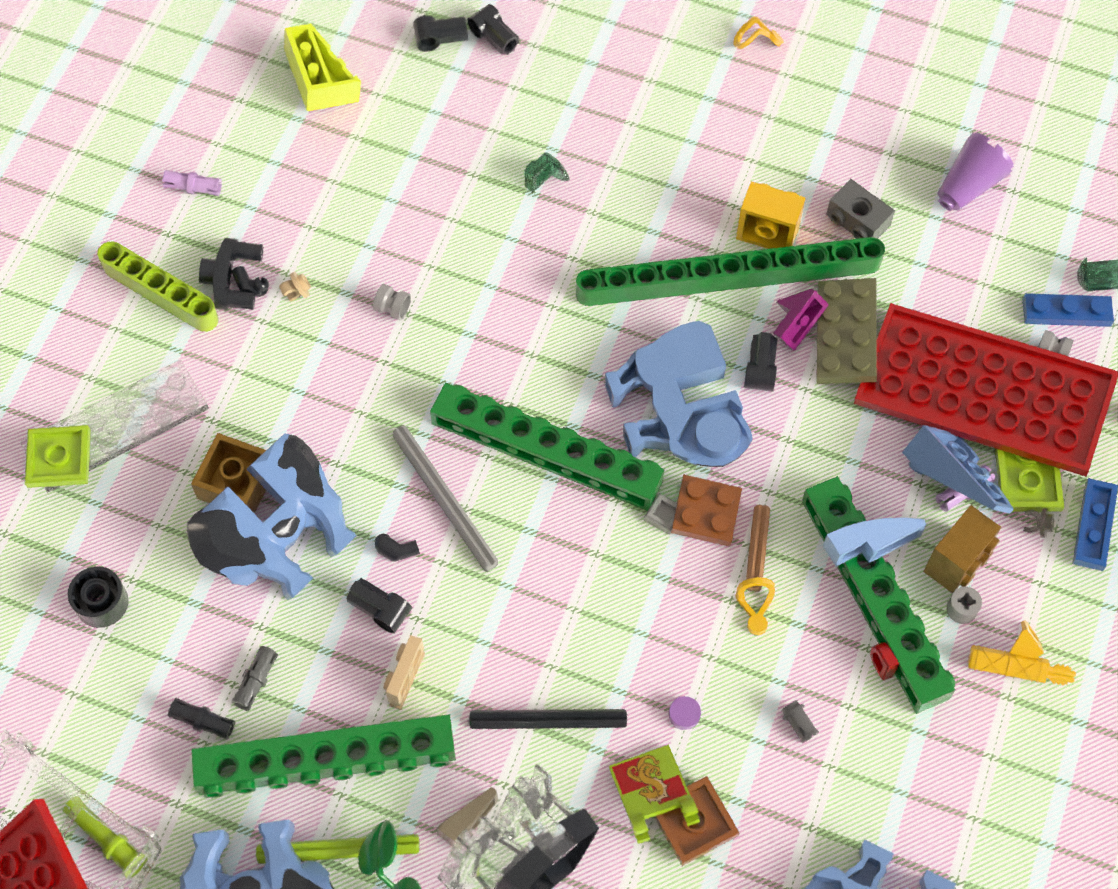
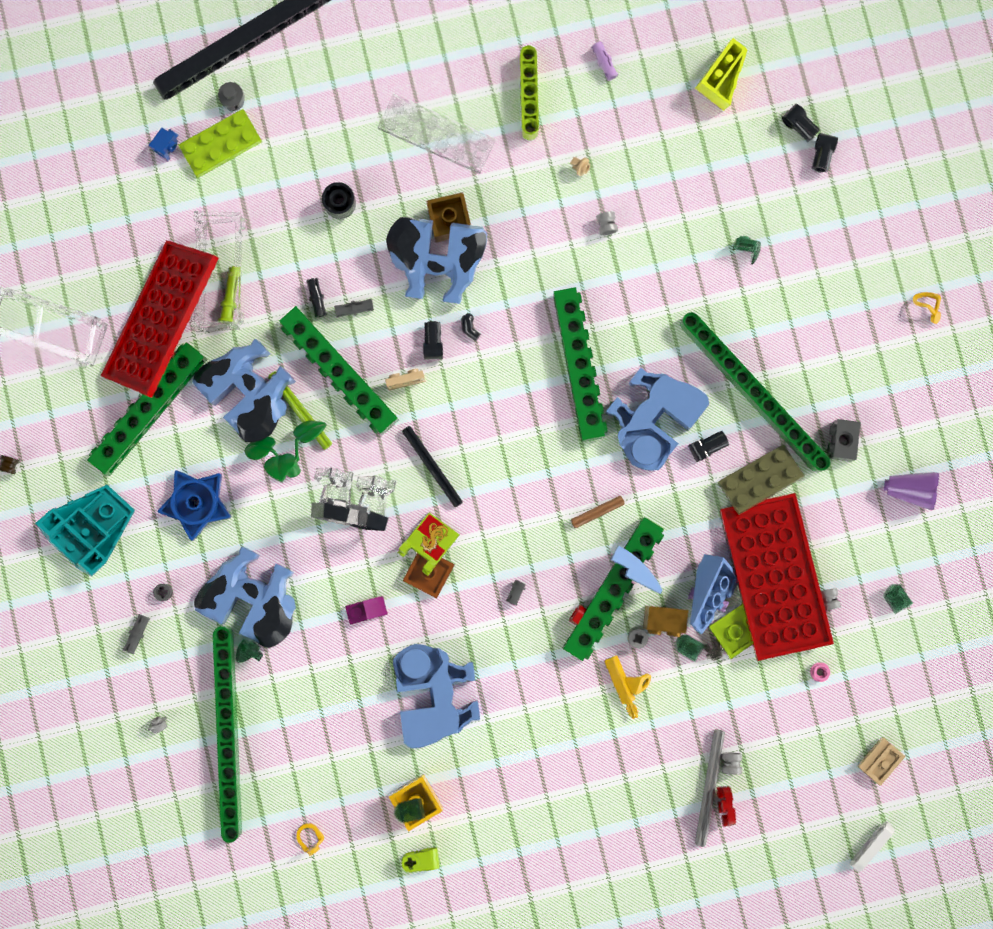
camera: 55 degrees right, 20 degrees up
(57, 456) = (396, 120): lime plate -> none
(218, 273) = (560, 118): black connector -> none
(246, 284) = (564, 140): black arm -> none
(445, 498) = (514, 332): light grey axle -> none
(468, 816) = (348, 461): dark tan slope -> none
(661, 513) = (584, 451): light grey tile -> none
(684, 713) = (481, 532): medium lavender tile -> none
(706, 510) = (601, 471): dark orange plate -> none
(757, 623) = (555, 537): yellow piece -> none
(769, 216) = (802, 393): yellow brick -> none
(802, 313) = (753, 449): magenta slope -> none
(1016, 549) = (689, 647): none -> clear green plate
(1068, 310) = (862, 593): blue plate -> none
(1095, 524) = (733, 681): blue plate -> none

